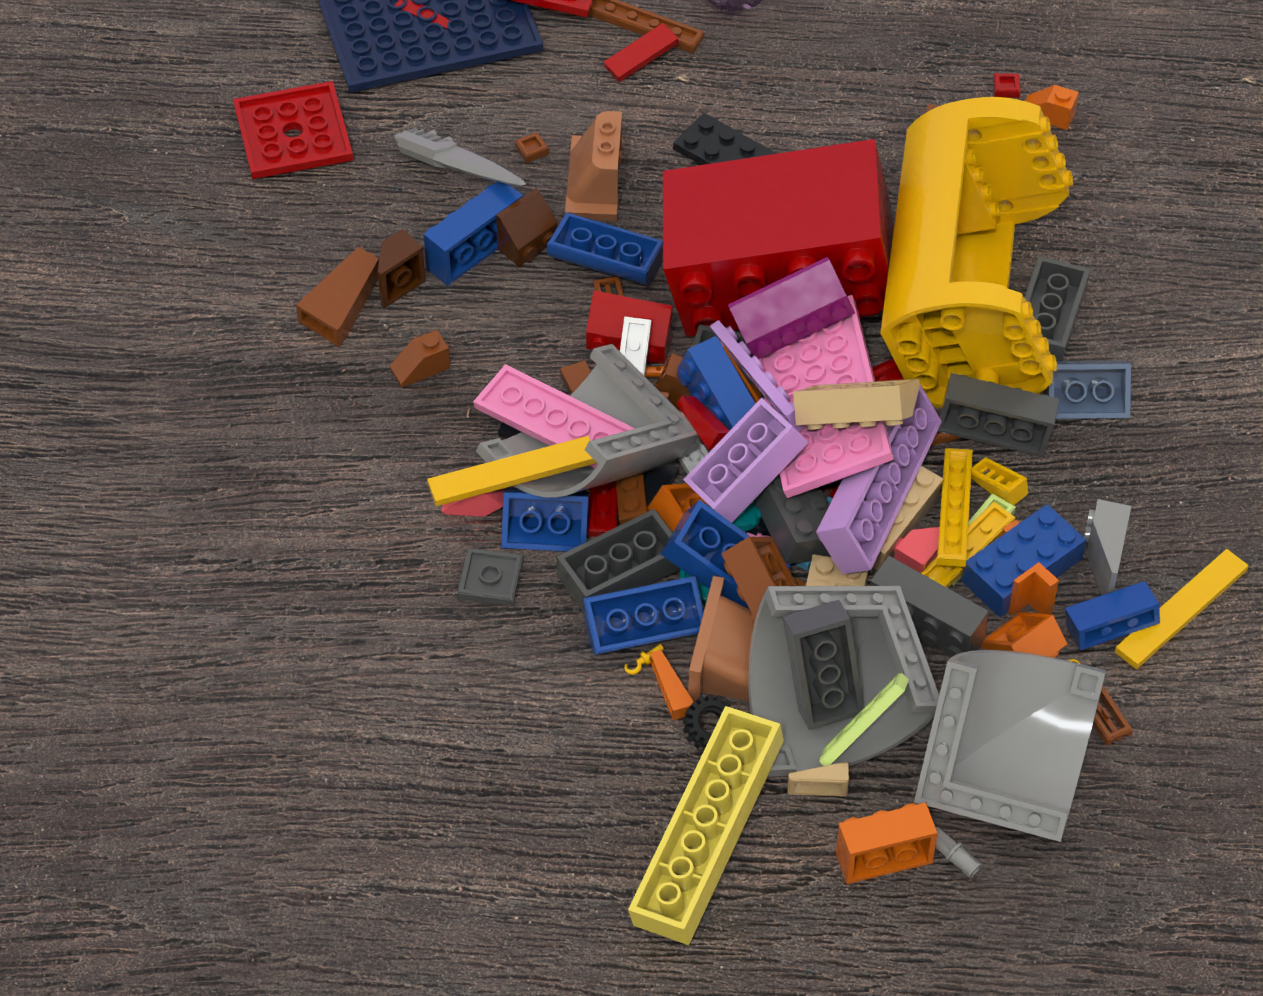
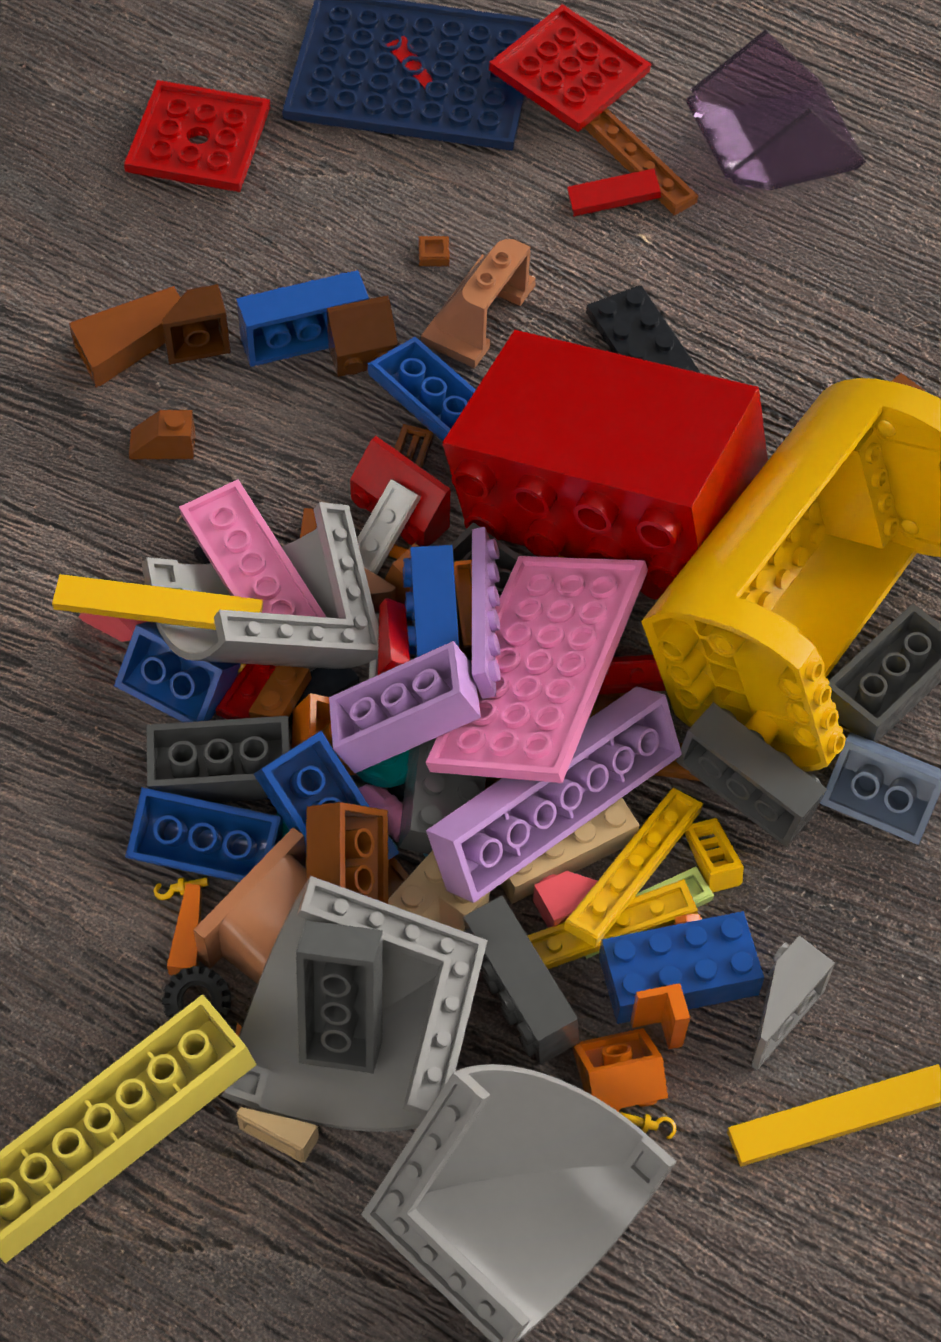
camera: 25 degrees right, 5 degrees up
(446, 154) = (323, 220): light grey piece -> none
(490, 576) = (80, 714): dark grey tile -> none
(791, 308) = (563, 548): magenta slope -> none
(855, 402) = (557, 694): tan slope -> none
(863, 719) = (352, 1086): yellowish green tile -> none
(886, 842) = (295, 1249): orange brick -> none
(956, 854) = (377, 1299): light grey axle -> none
(1112, 615) = (744, 1086): blue brick -> none
(1114, 734) = (666, 1240): dark orange tile -> none

